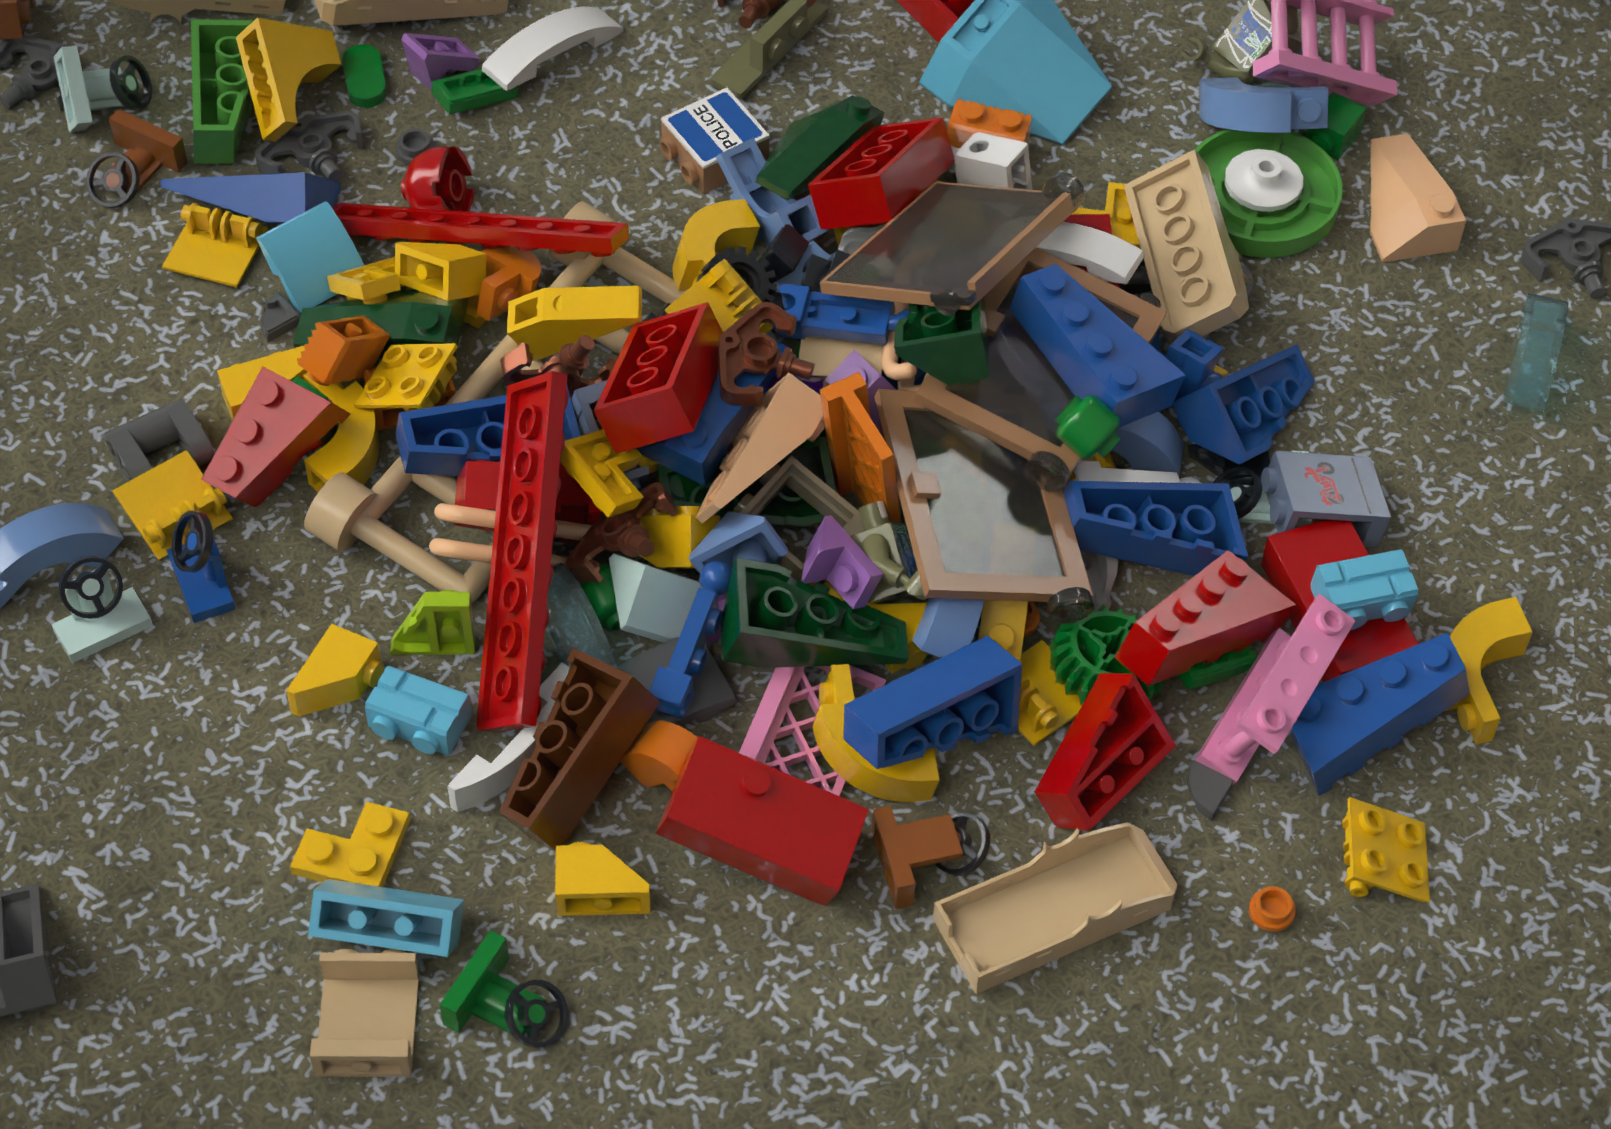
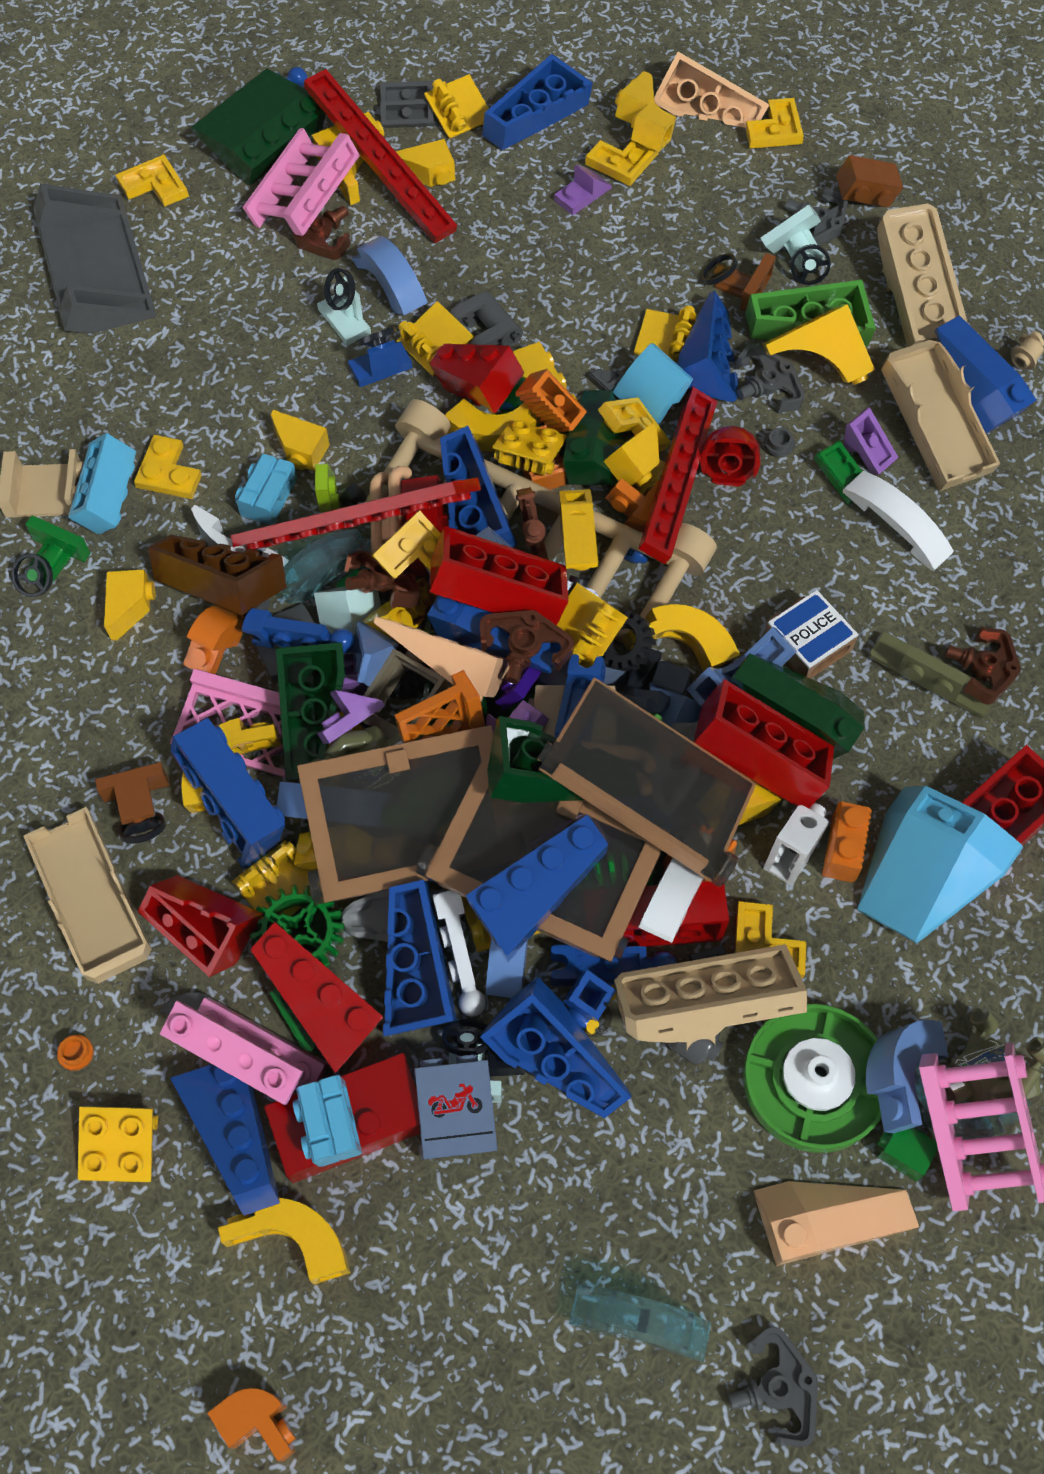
camera: 90 degrees right, 10 degrees up
(364, 76) = (848, 404): green tile -> none
(762, 821) = (147, 687): red brick -> none
(1088, 427) = (456, 879): green head -> none

